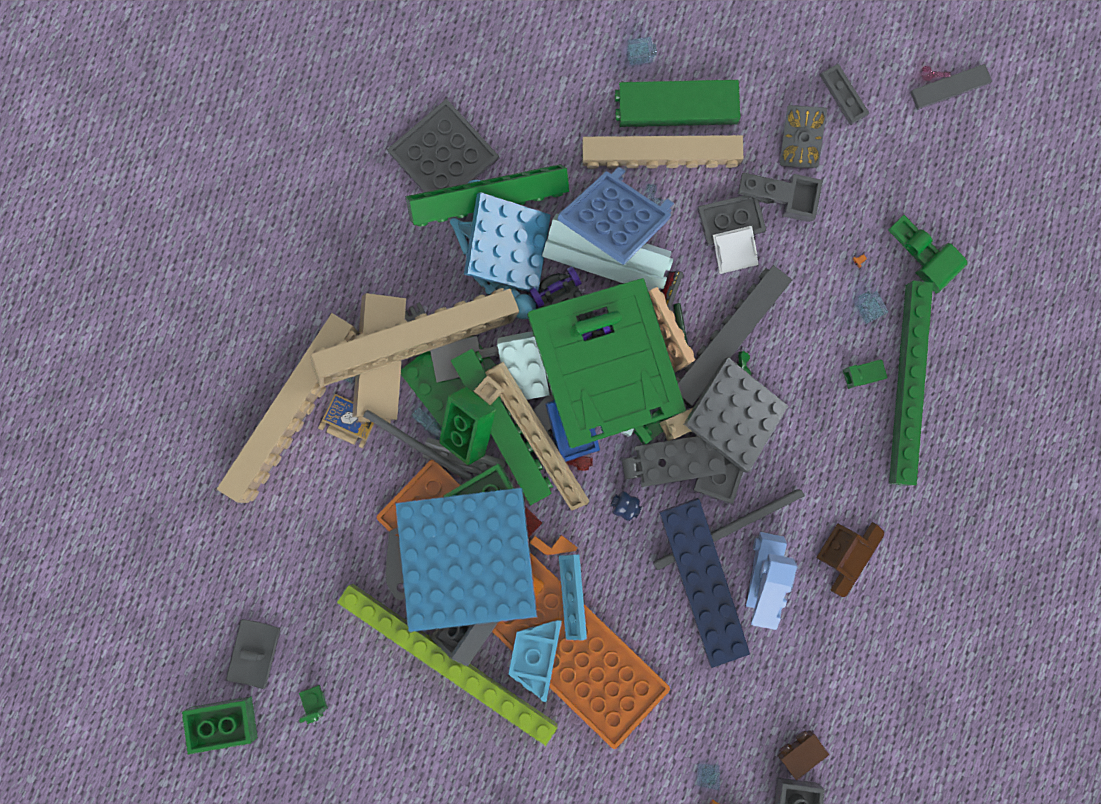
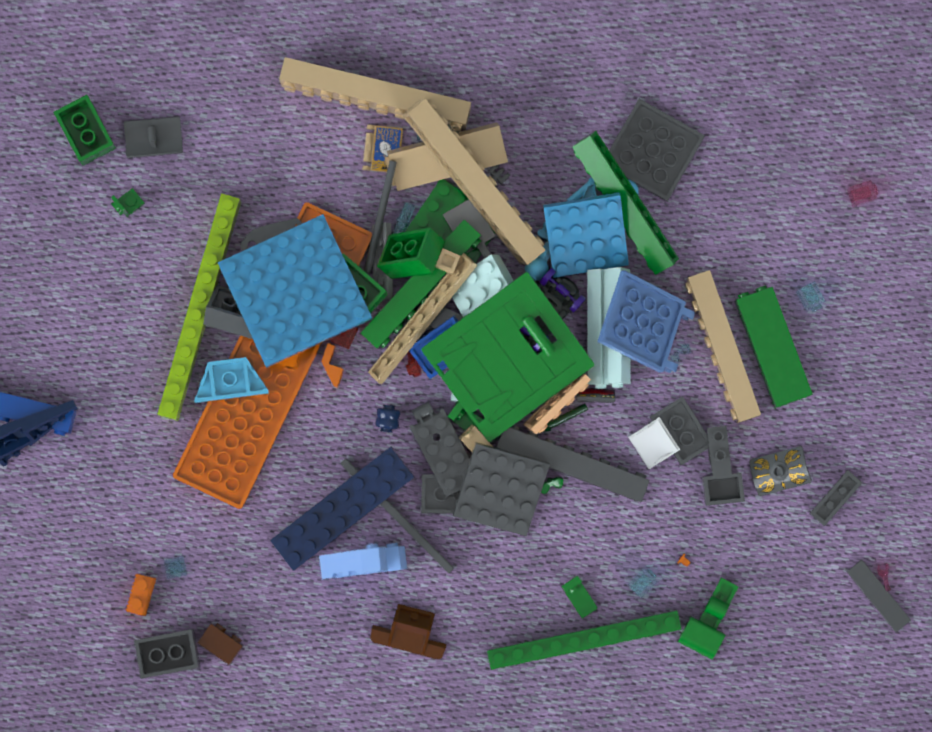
camera: 70 degrees right, 0 degrees up
(572, 597) = (292, 396): medium azure plate -> none

